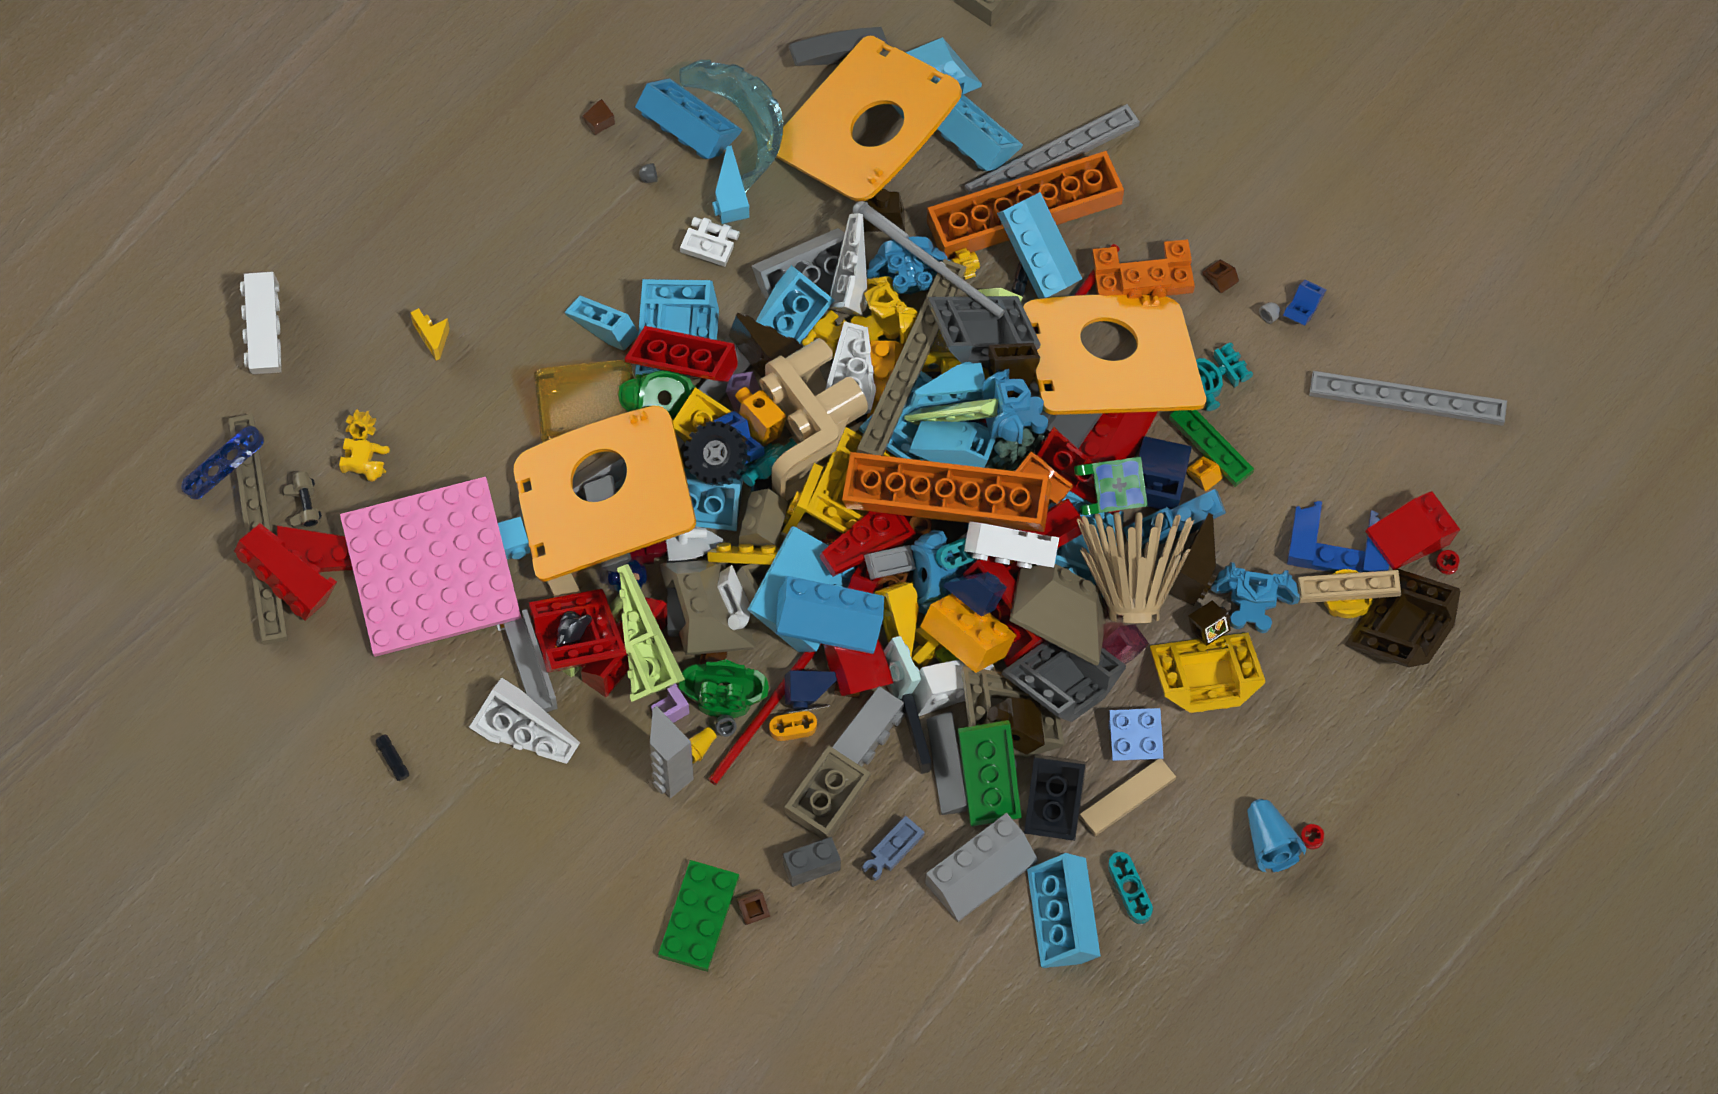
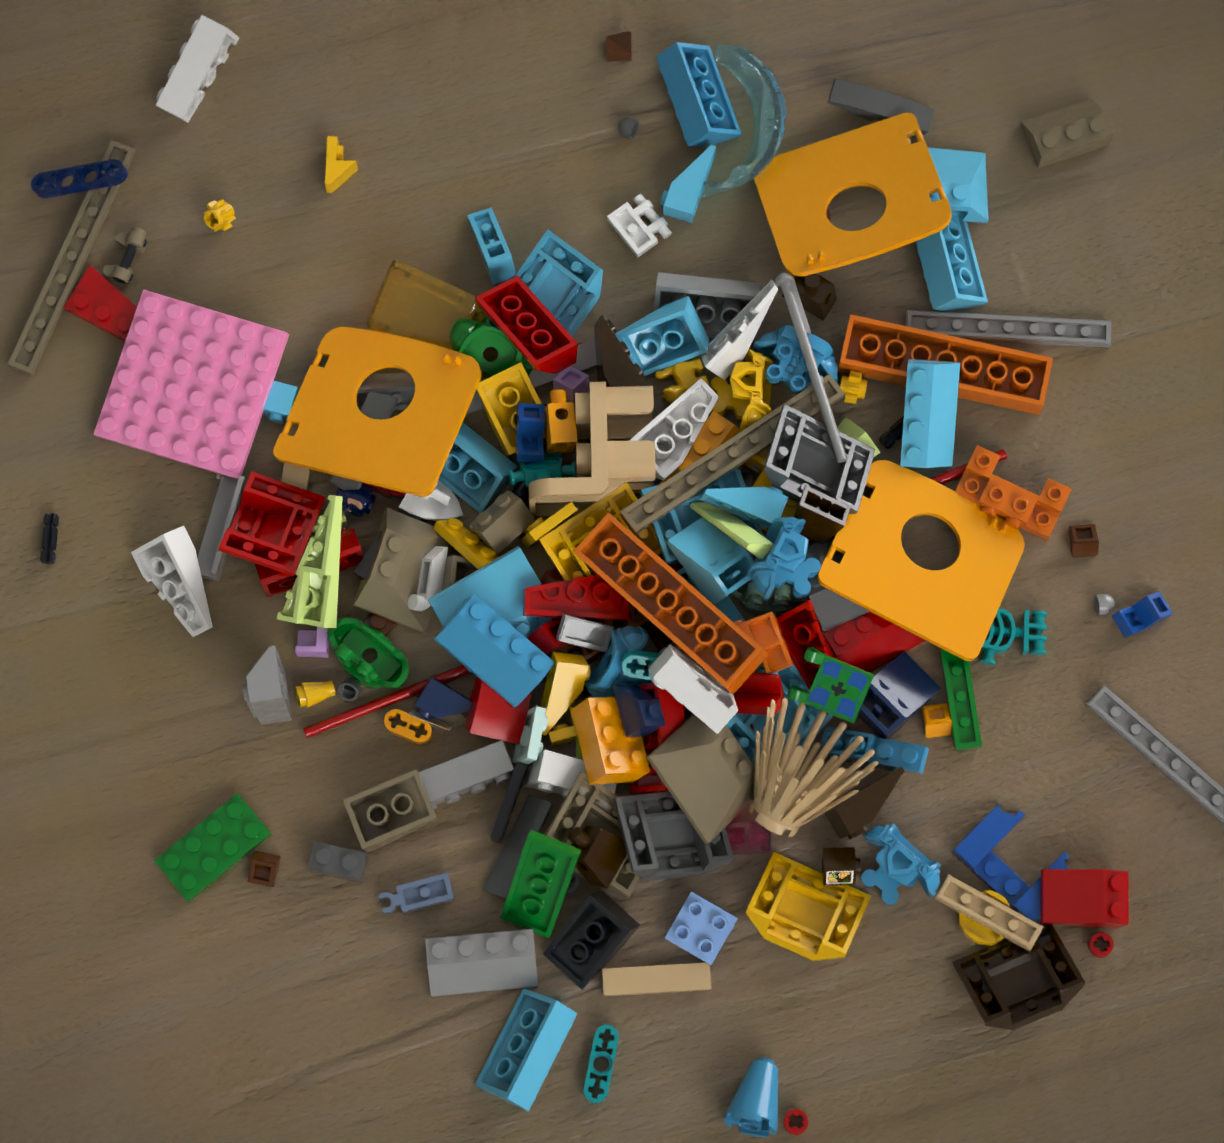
camera: 35 degrees right, 10 degrees up
(284, 571) = (61, 313): red wedge -> none
(360, 460) = (202, 243): yellow animal -> none
(571, 628) = (267, 520): black animal -> none
(707, 446) = (484, 432): black wheel -> none

